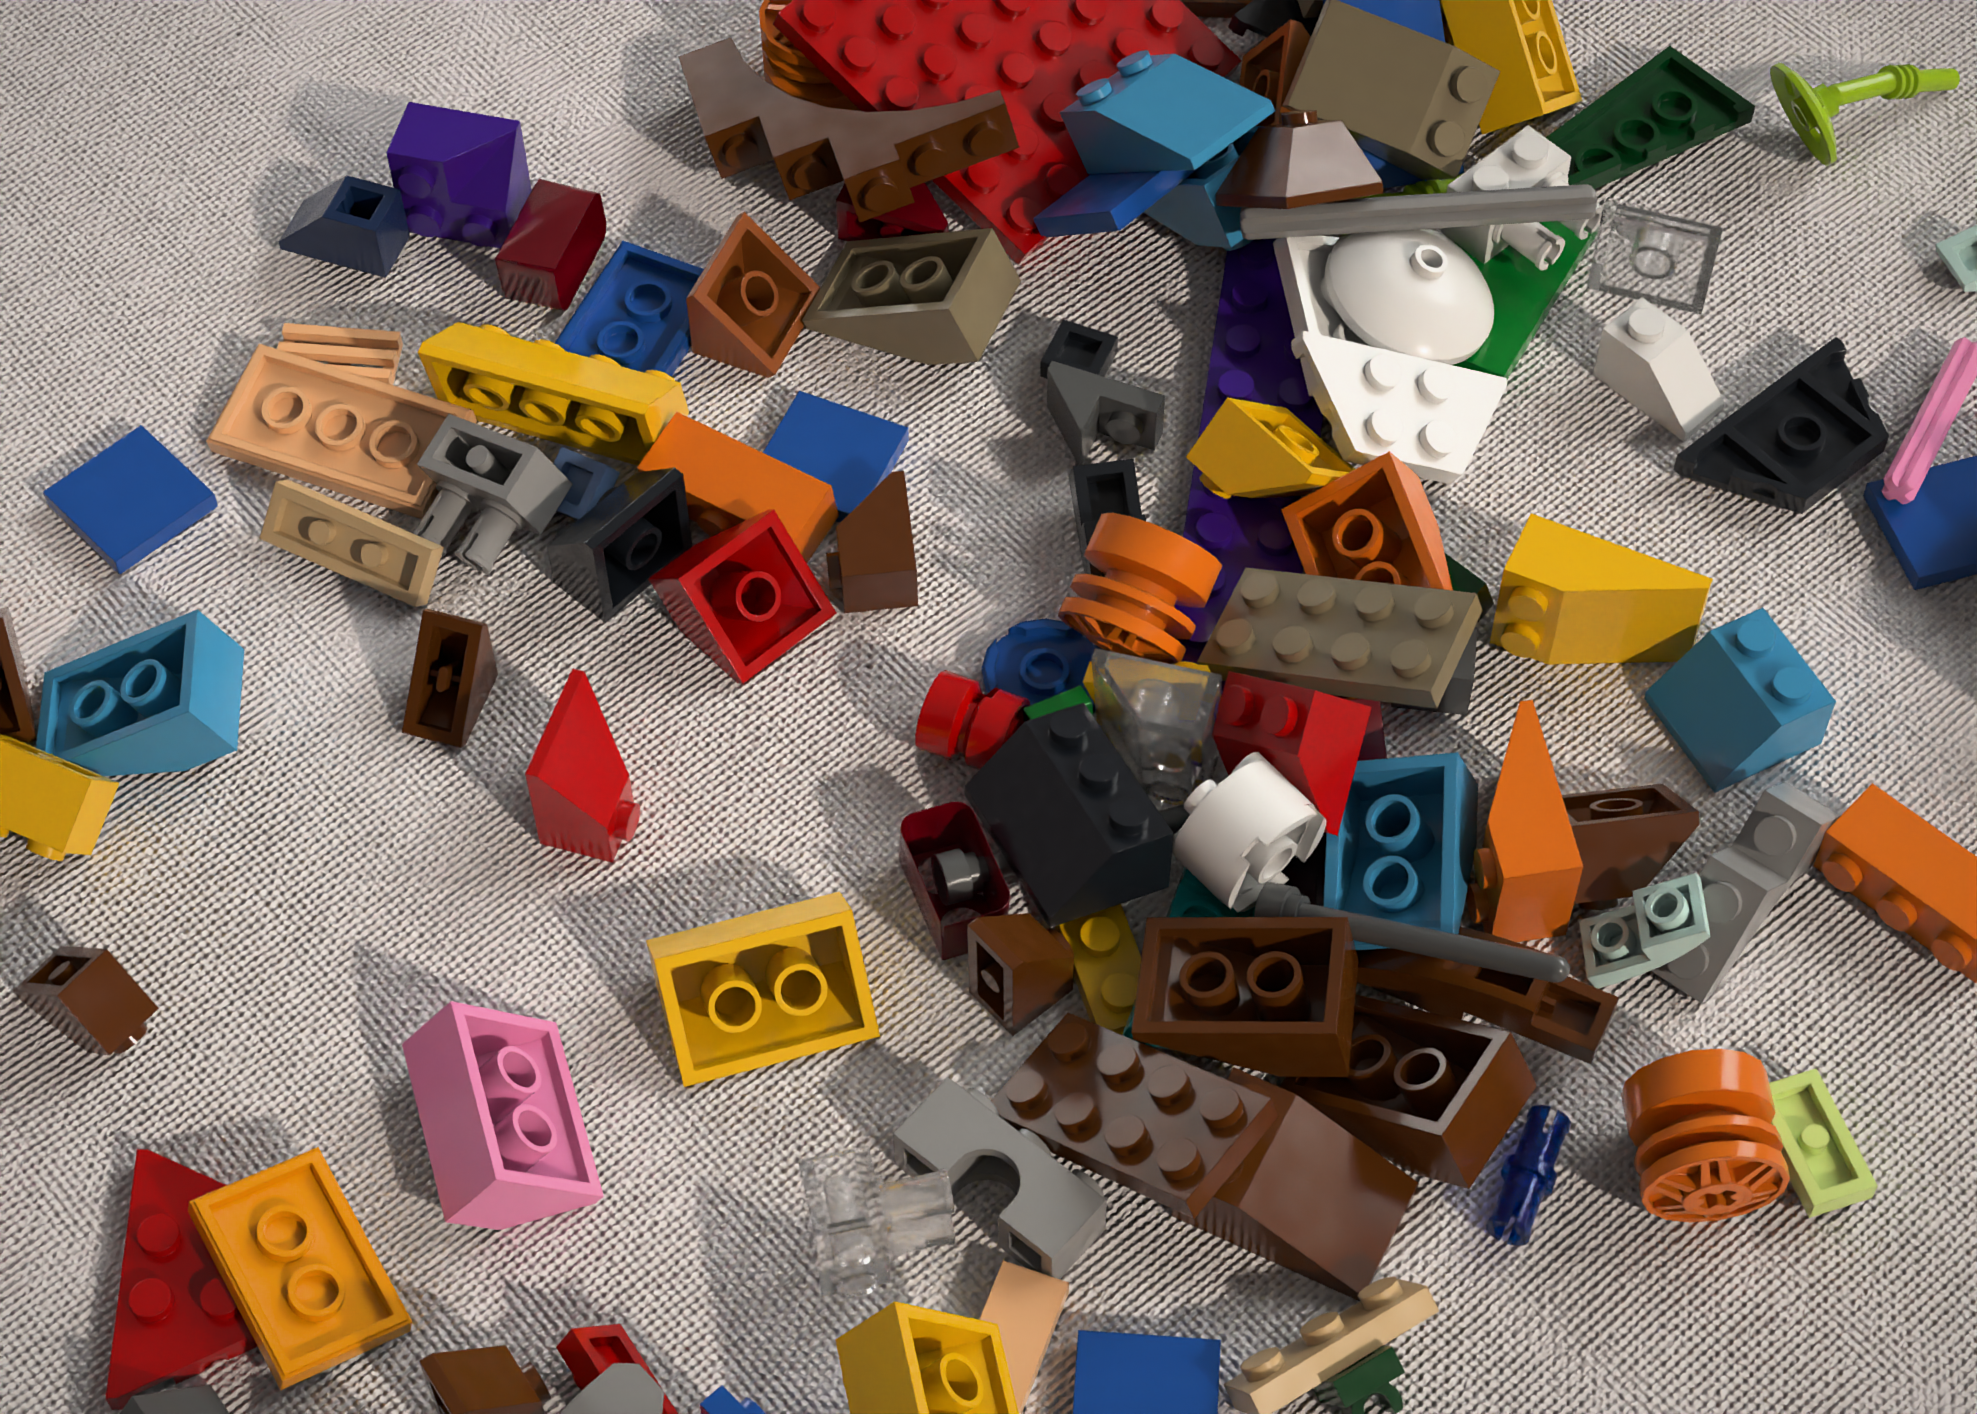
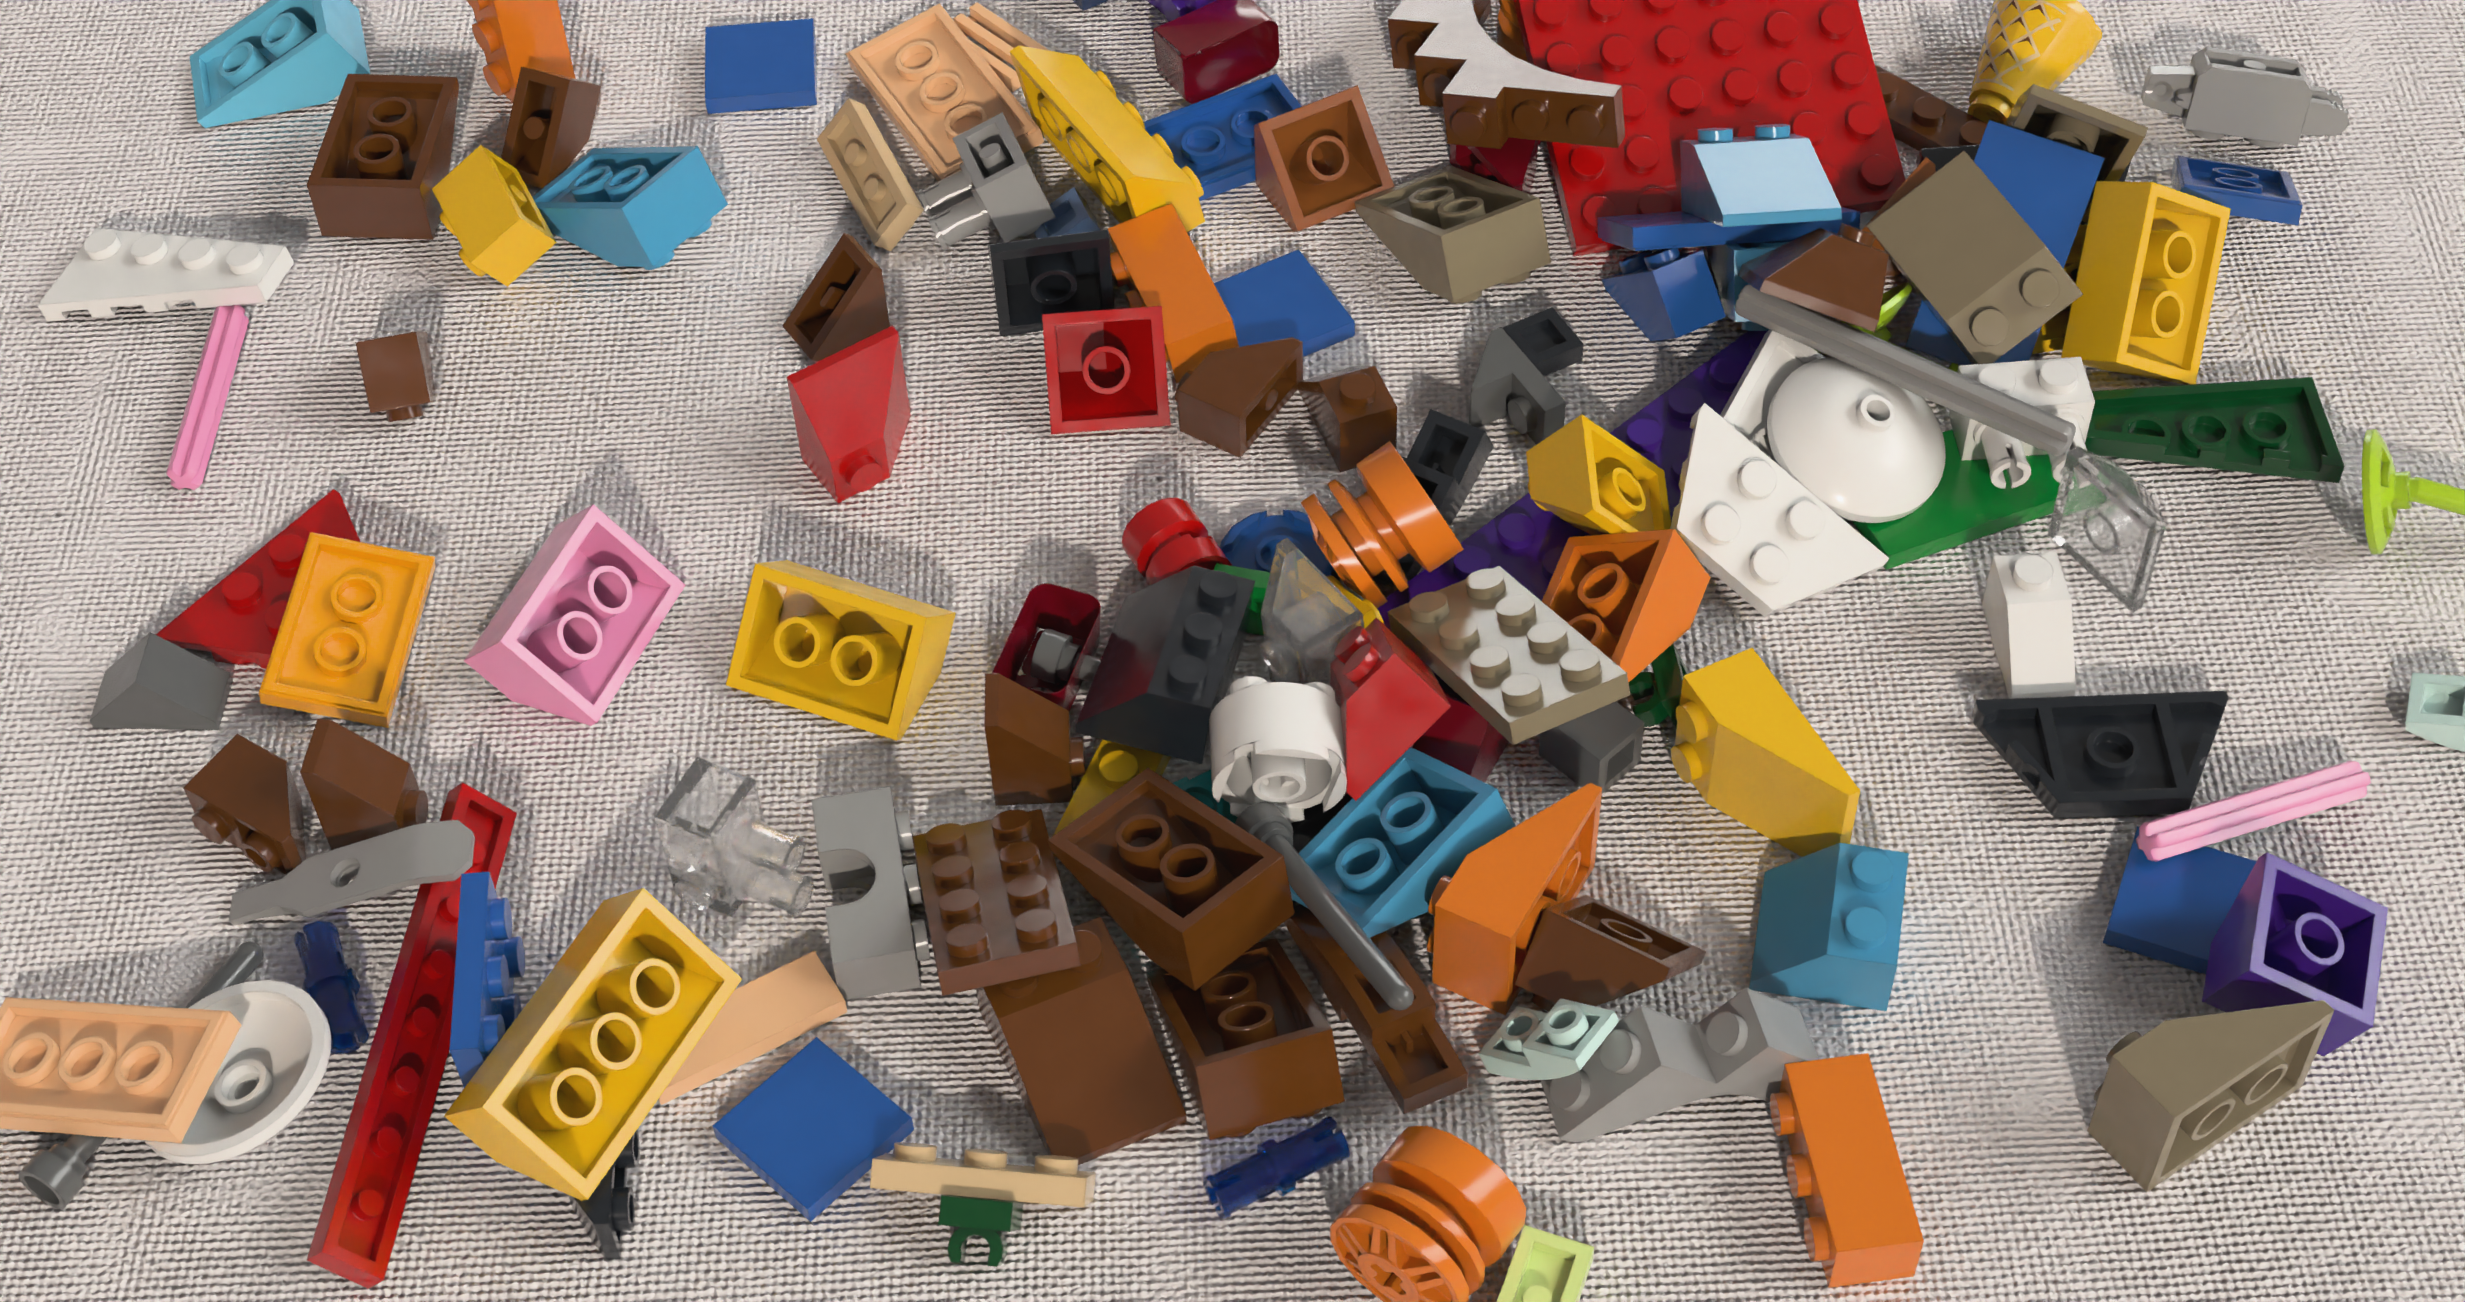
camera: 40 degrees right, 5 degrees down
(983, 507) = (1351, 413): none -> reddish brown slope
(1144, 259) = (1666, 292): none -> blue slope

